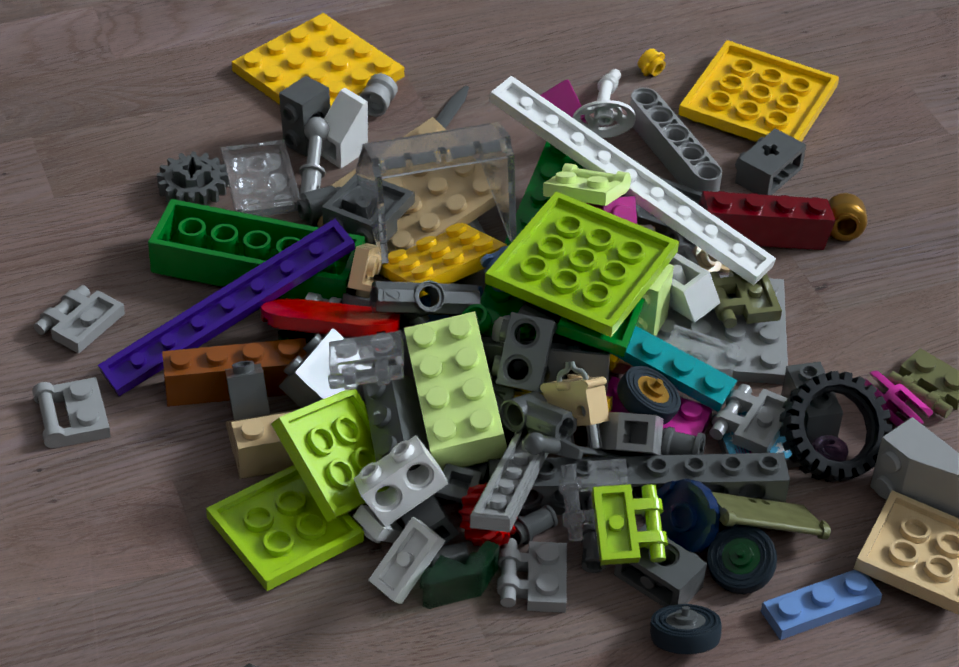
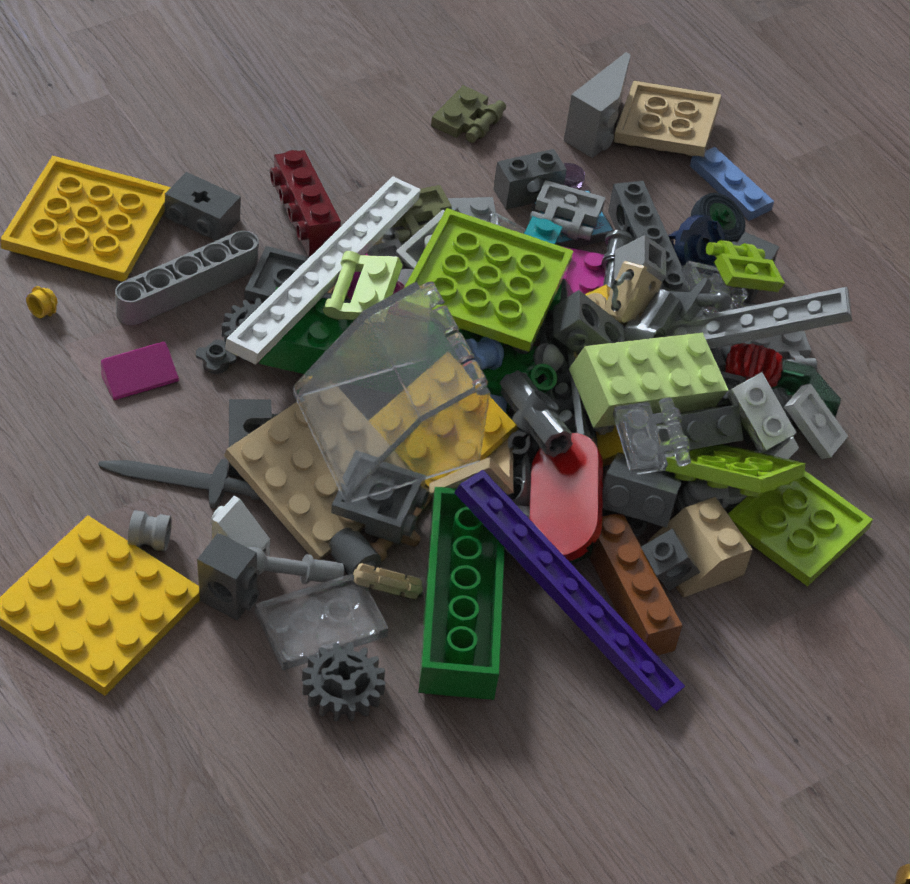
camera: 105 degrees left, 5 degrees up
(83, 408) = (714, 714): light grey plate -> none
(86, 321) = (594, 735): light grey plate -> none
(286, 204) = (387, 581): none -> tan axle
(604, 111) = (165, 321): white dish -> none
(649, 393) = (586, 268): black wheel -> none
(685, 629) = (803, 251): black wheel -> none
(769, 515) = (678, 199): olive door -> none
(795, 432) = (571, 154): black tyre -> none
(849, 216) = (264, 150): pearl gold head -> none
(896, 398) = (505, 132): dark pink arm -> none

